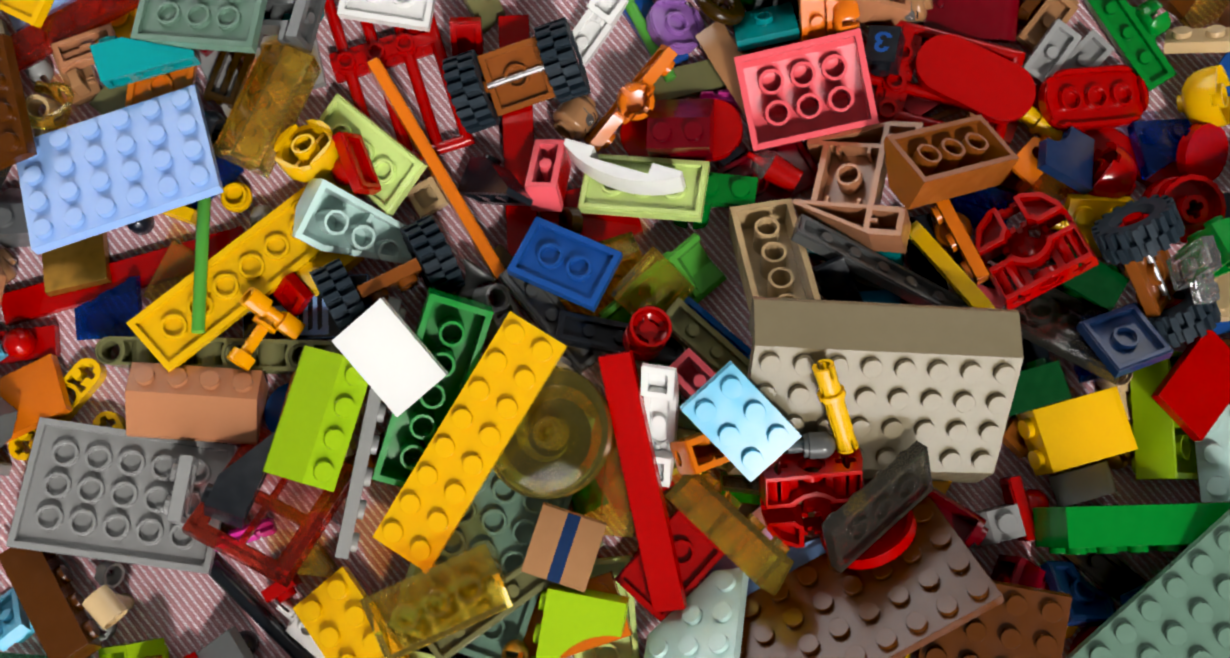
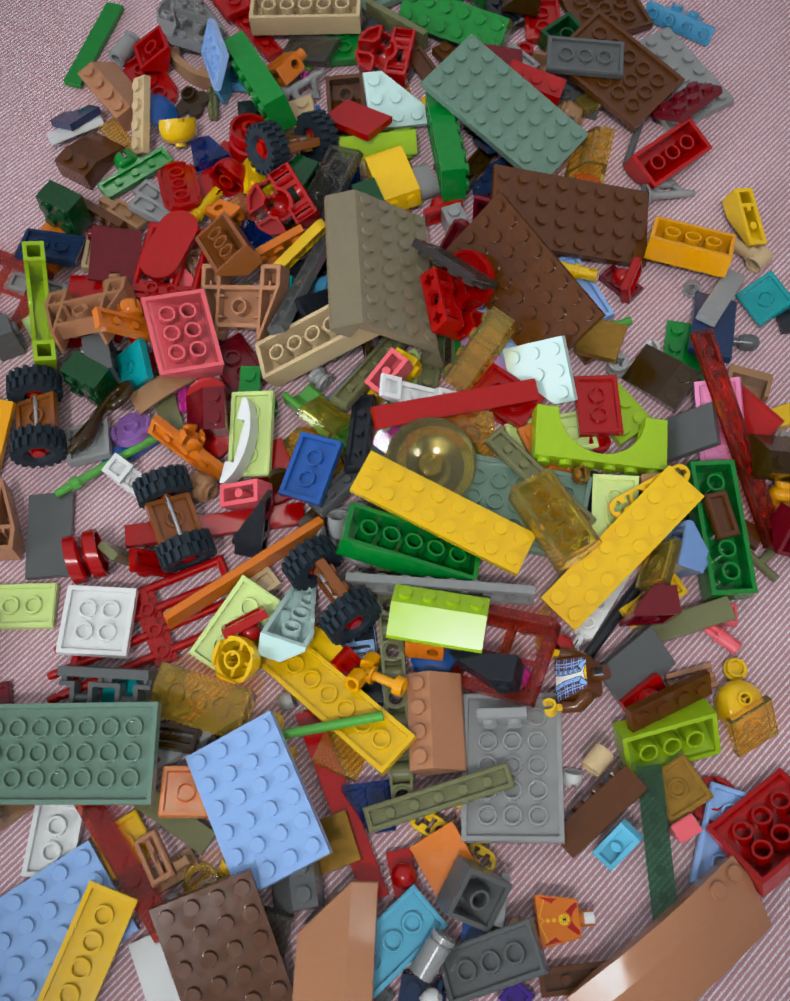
camera: 90 degrees left, 15 degrees down
(94, 396) = (438, 797): none -> olive tile
(131, 60) = (166, 806): teal slope -> none
(213, 596) = (576, 681): none -> torso
(390, 356) = (389, 564): white tile -> none
(564, 547) = (506, 446): medium nougat slope -> none
(653, 329) = (356, 408): red wheel -> none
(696, 454) = (430, 361): orange torso -> none
(730, 292) = (320, 379): none -> light grey wheel
(740, 421) = (411, 333): plate -> none
(775, 169) = (235, 356): red piece -> none
(814, 445) = (421, 299): dark grey cylinder -> none
(832, 396) = (390, 282): yellow pin -> none
(884, 50) = (149, 288): black brick -> none
(1069, 159) = (222, 192): dark blue tile -> none
(1124, 340) = (336, 151): dark blue tile -> none
(1194, 270) = (290, 116): clear hinge -> none
(1202, 151) = (212, 131): red tile -> none

